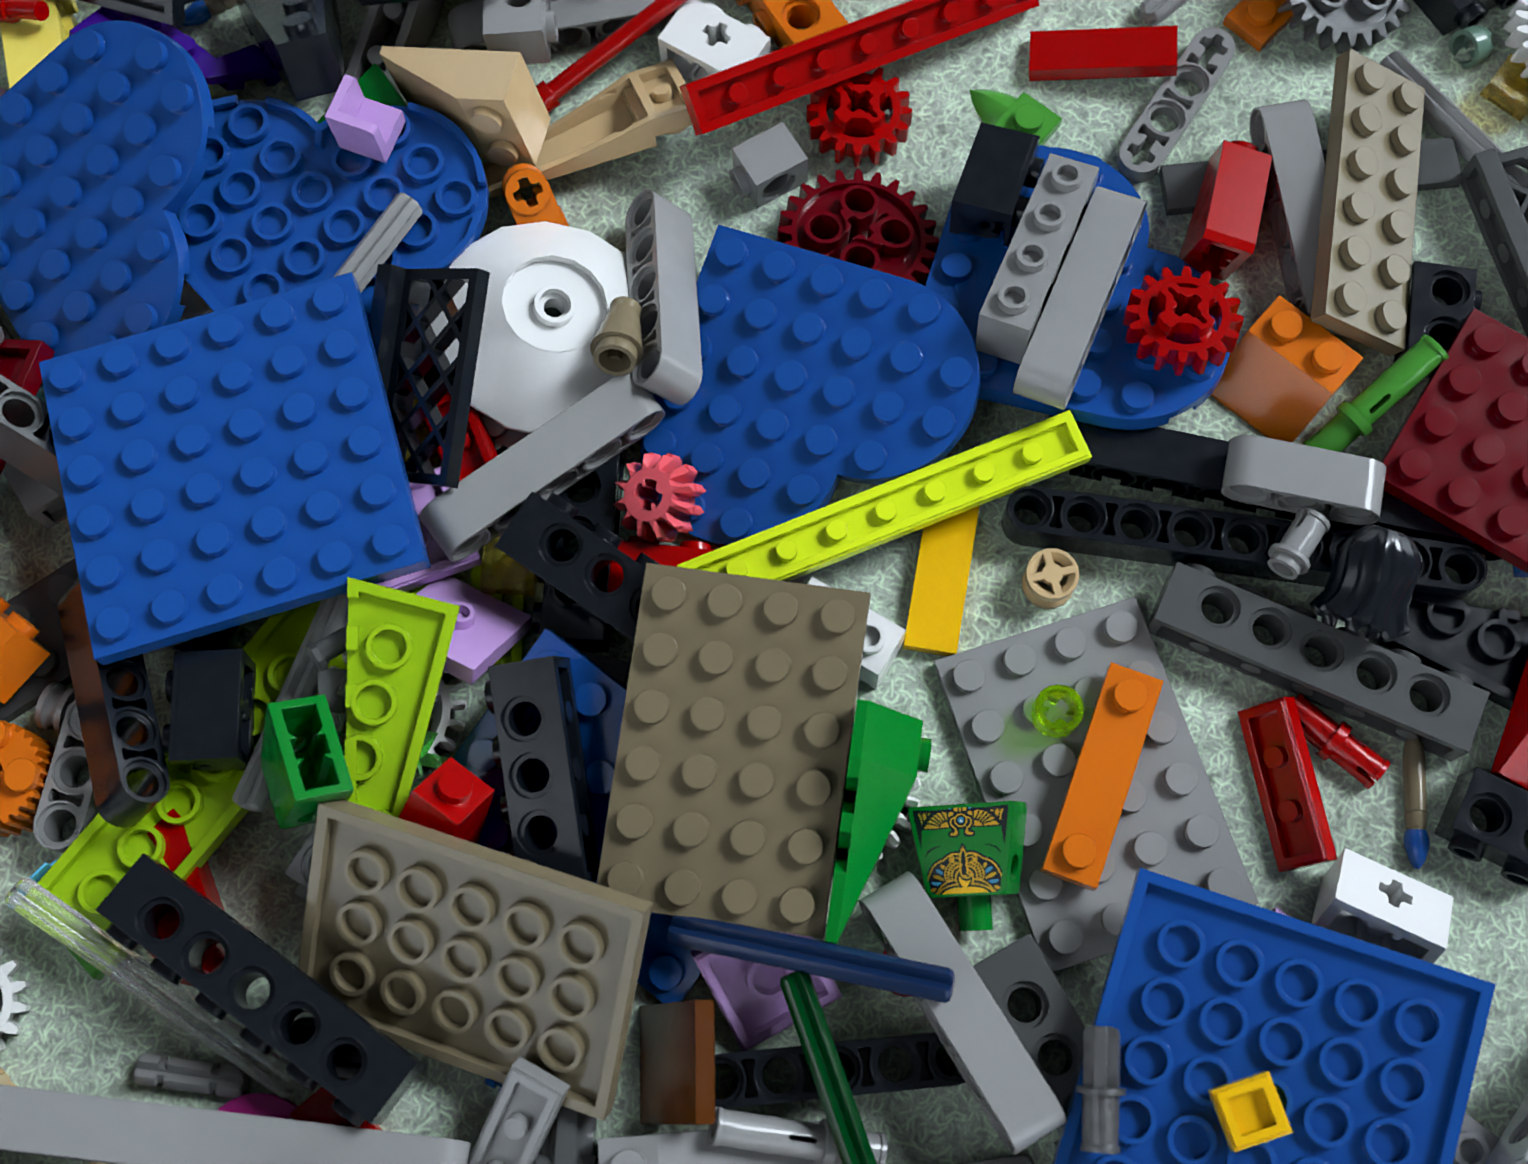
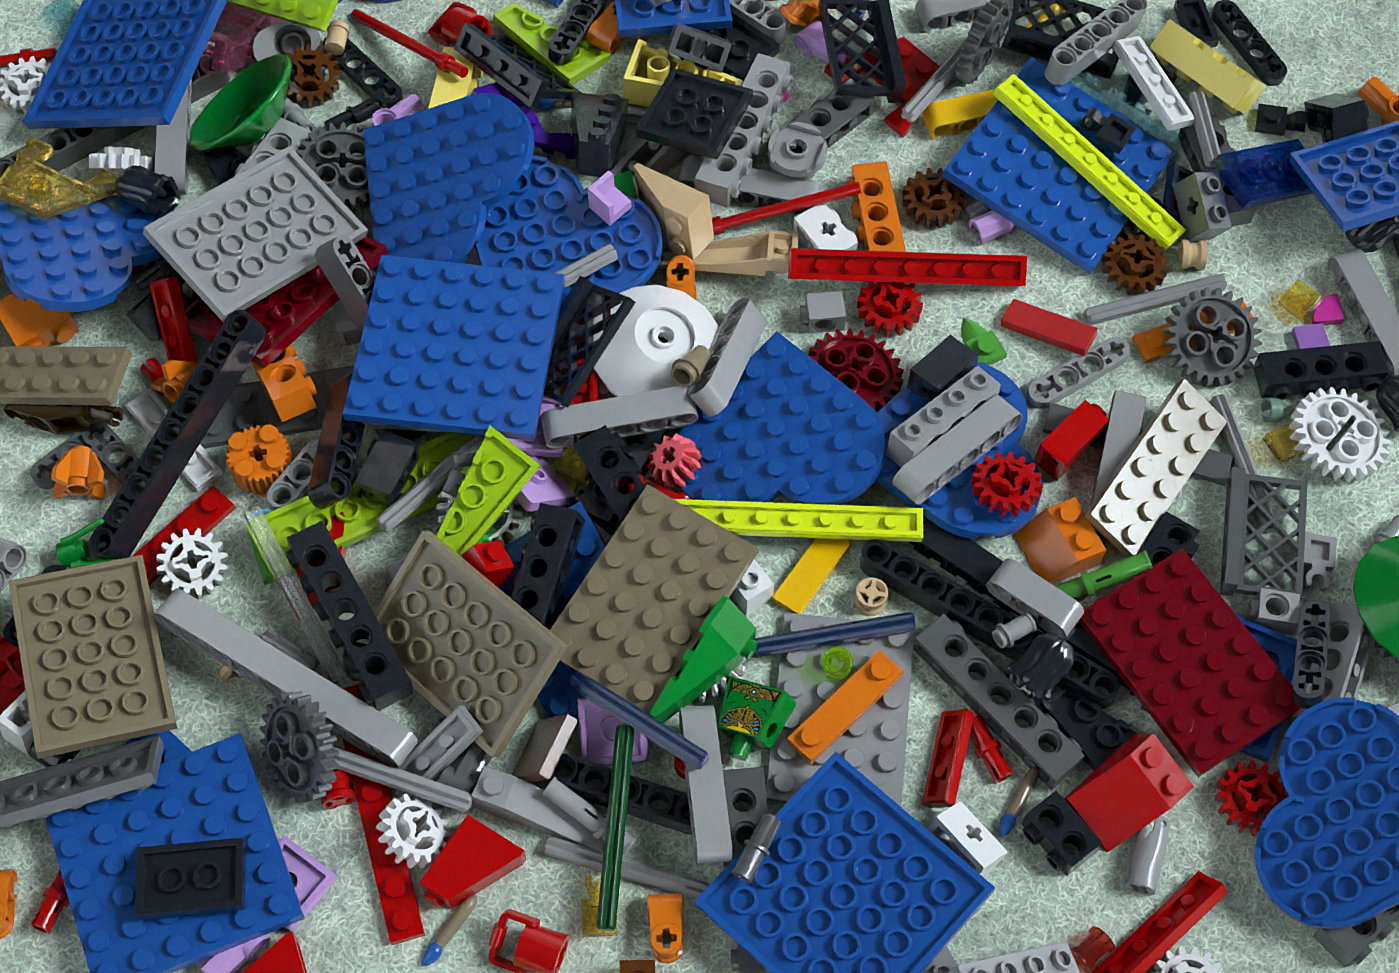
camera: 20 degrees right, 10 degrees down
(53, 706) = (304, 436): light grey bush -> none
(305, 773) = (418, 516): green torso -> none
(1032, 665) = (835, 634): none -> dark blue axle
(1250, 1111) = (830, 892): yellow tile -> none

